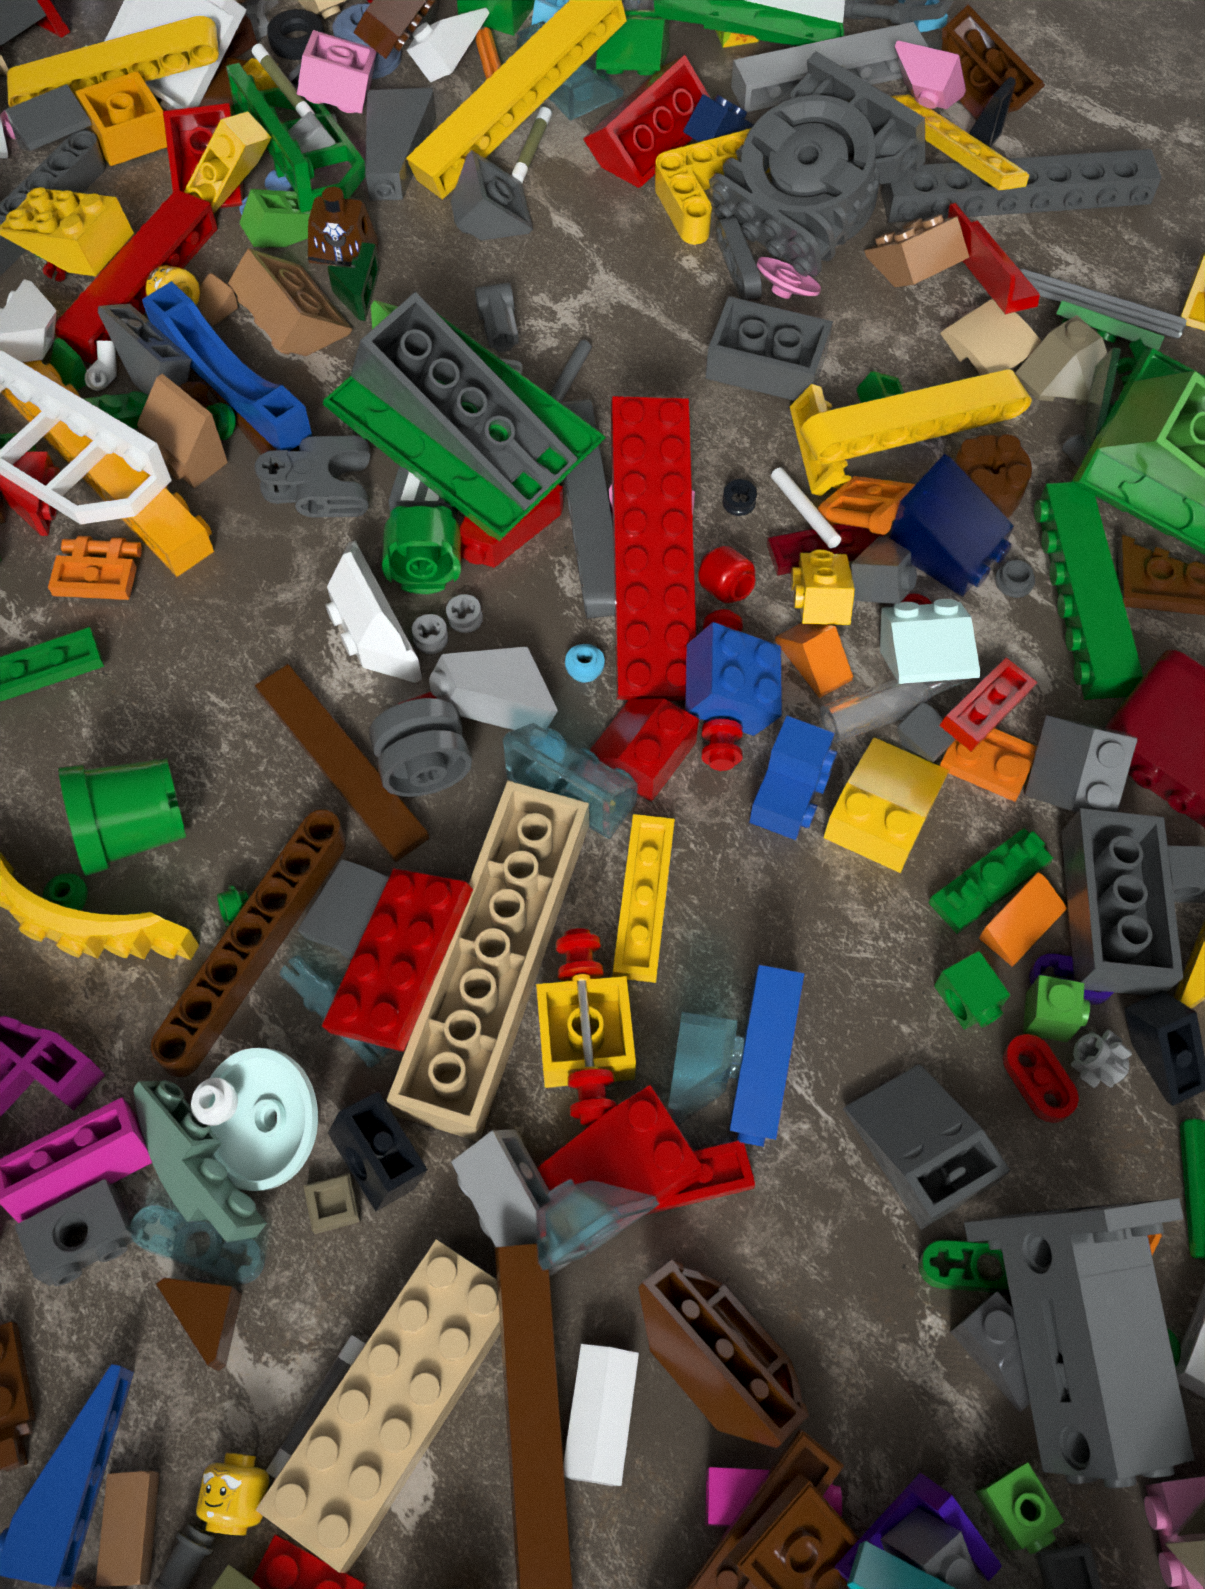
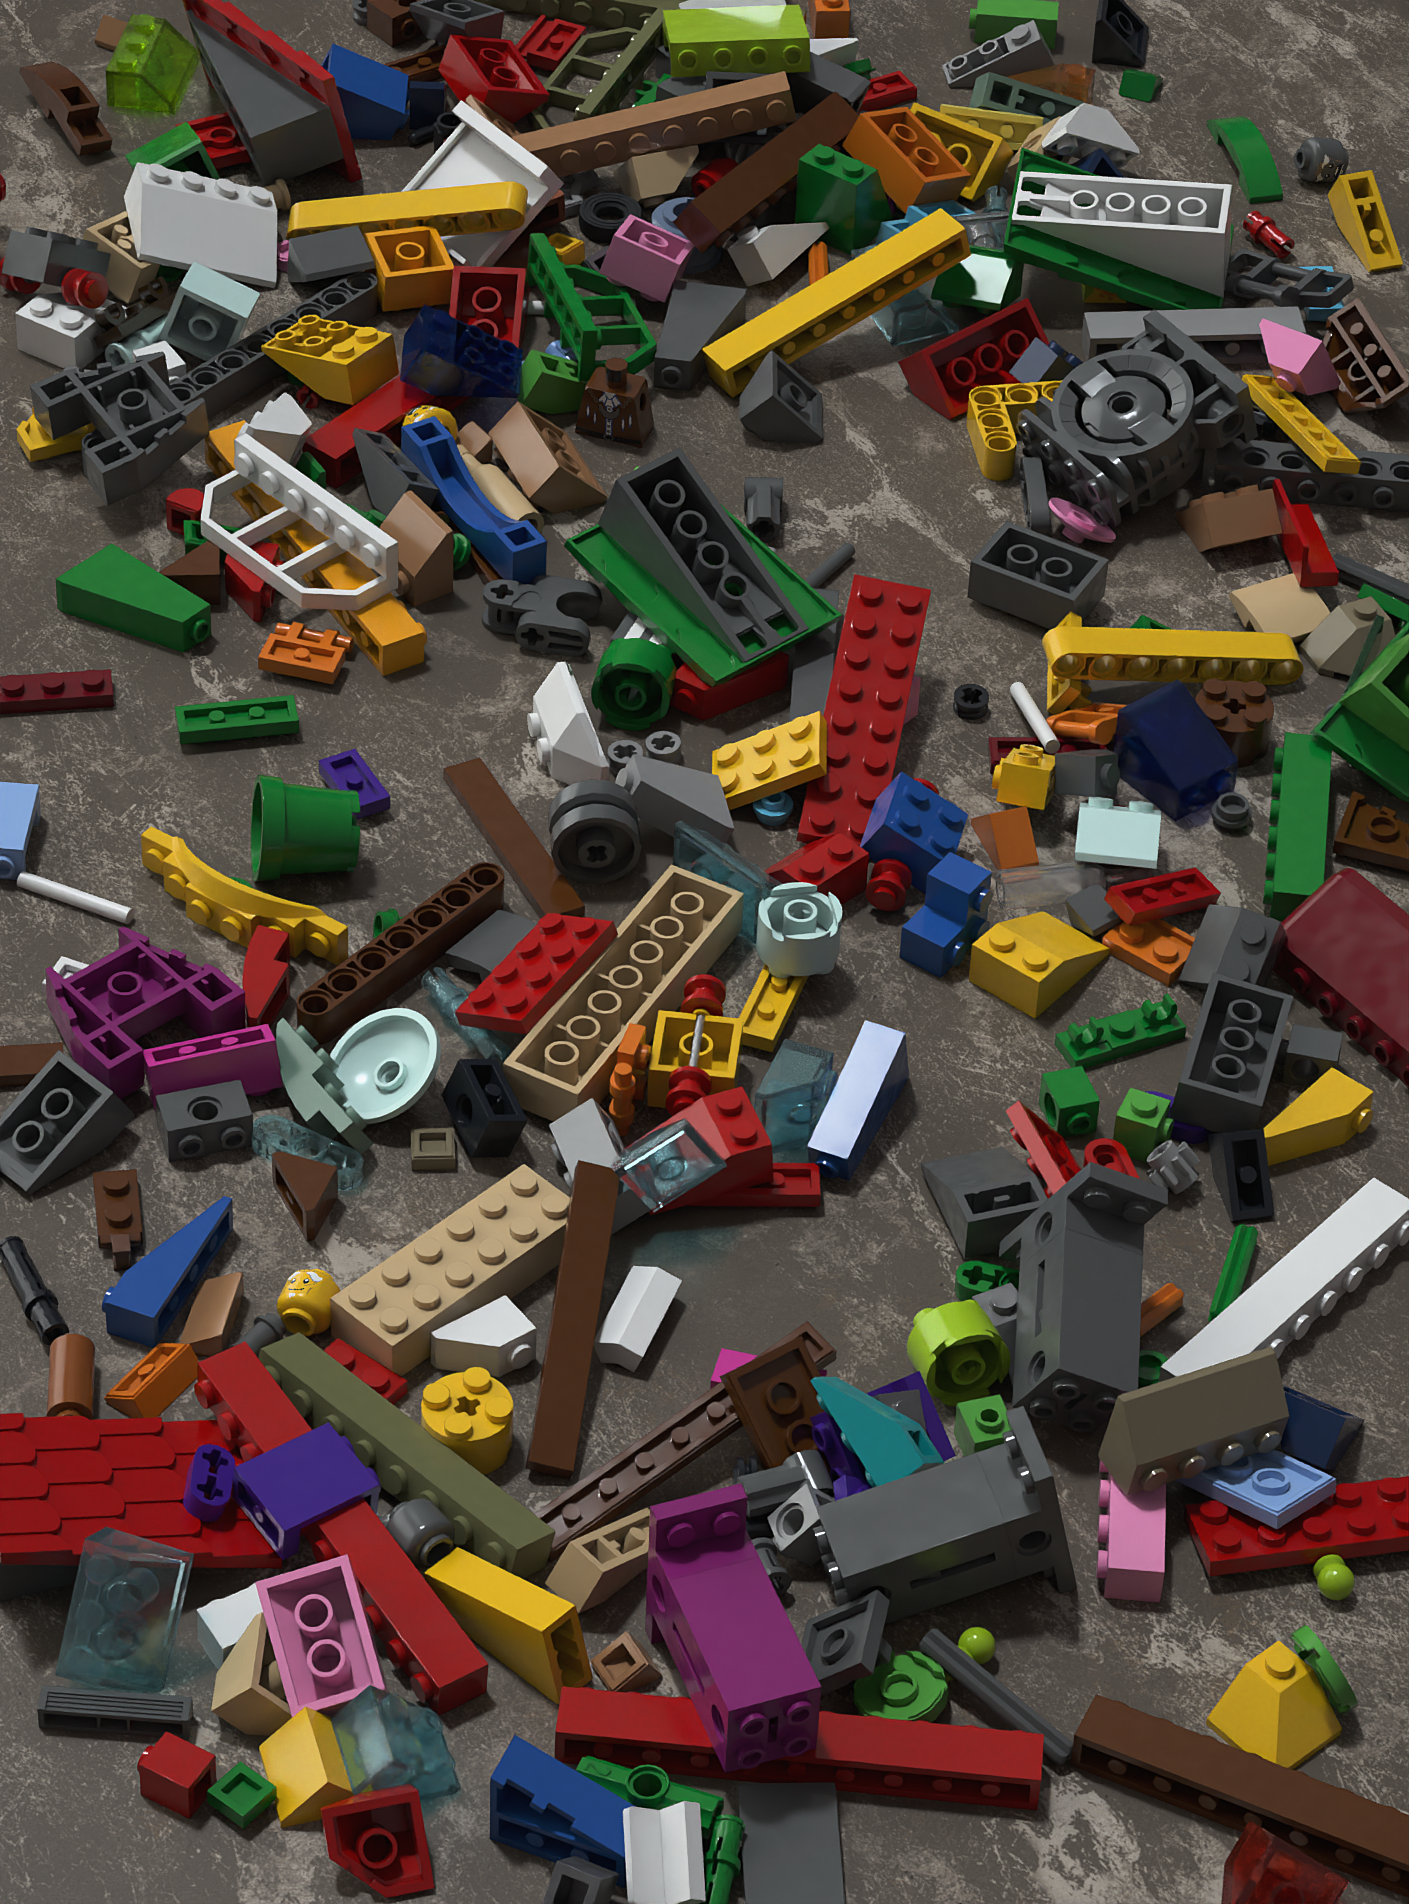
camera: 10 degrees right, 20 degrees down
(104, 368) = (346, 486): white arm -> none
(113, 1016) = (266, 975): none -> red slope
(169, 724) = (351, 772): none -> dark purple plate
(184, 211) = (458, 358): none -> clear blue slope
(223, 1107) = (348, 1044): white plate -> none
(228, 158) = (522, 310): yellow slope -> none
(252, 348) = (501, 491): none -> tan piece
(281, 80) = (585, 258): olive bar -> none
(310, 134) = (606, 310): light grey slope -> none
(357, 283) = (622, 455): dark green slope -> none
(445, 1500) = (488, 1338): none -> white slope
(523, 1073) = (628, 1079): none -> orange plate
(531, 144) = (842, 361): olive bar -> none
(575, 618) = (772, 760): none -> yellow plate
(655, 839) = (799, 930): none -> light aqua brick
(721, 1356) = (743, 1283): reddish brown wedge -> none
(727, 574) = (935, 757): red head -> none
(963, 1402) = (957, 1351): none -> lime brick
(992, 119) = (1354, 410): black slope -> none
(993, 1099) = (1048, 1150): none -> red plate
(1023, 920) = (1139, 1063): orange slope -> none

